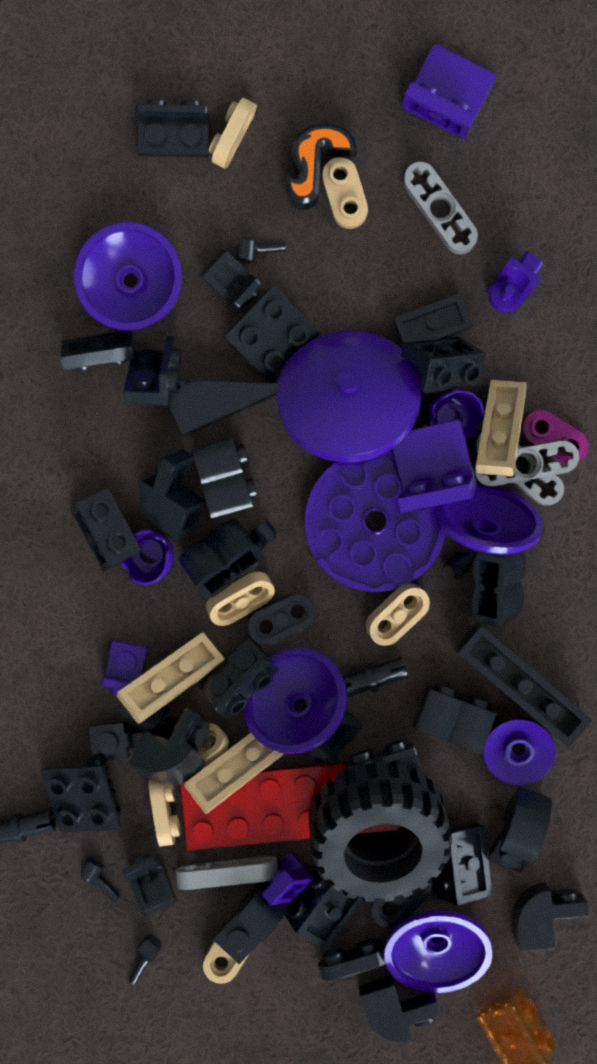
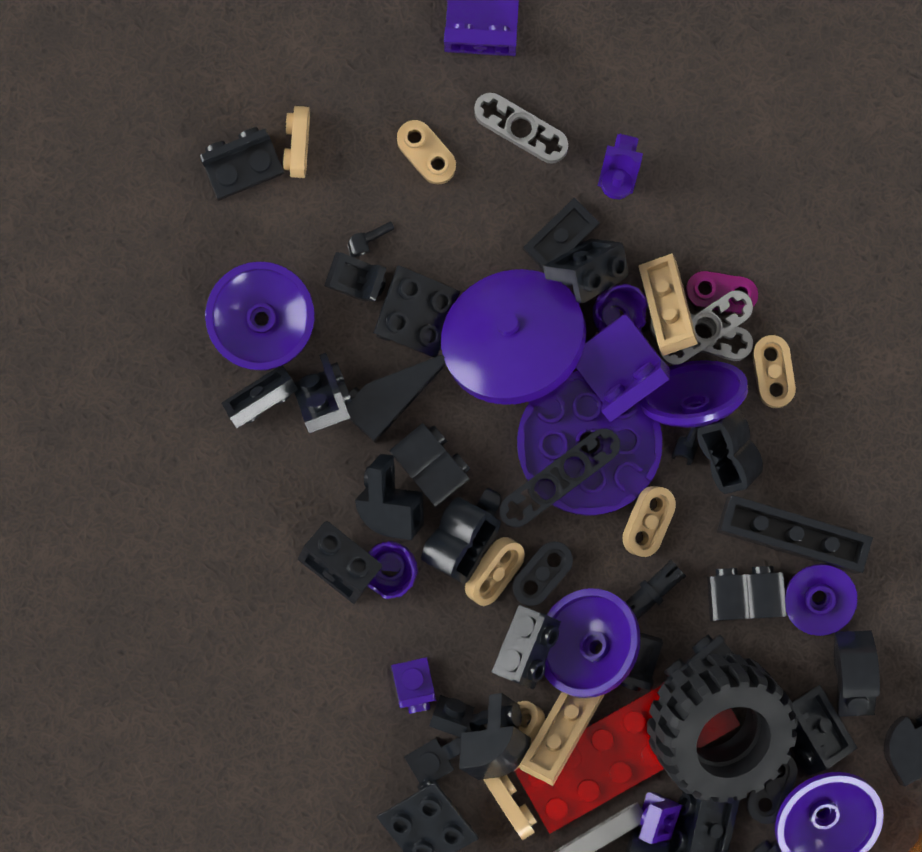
camera: 20 degrees left, 5 degrees down
(170, 677) = (462, 673): tan plate -> none
(306, 152) = (378, 138): black animal -> none
(335, 547) = (562, 482): none -> black beam
(572, 530) = (774, 372): none -> tan plate

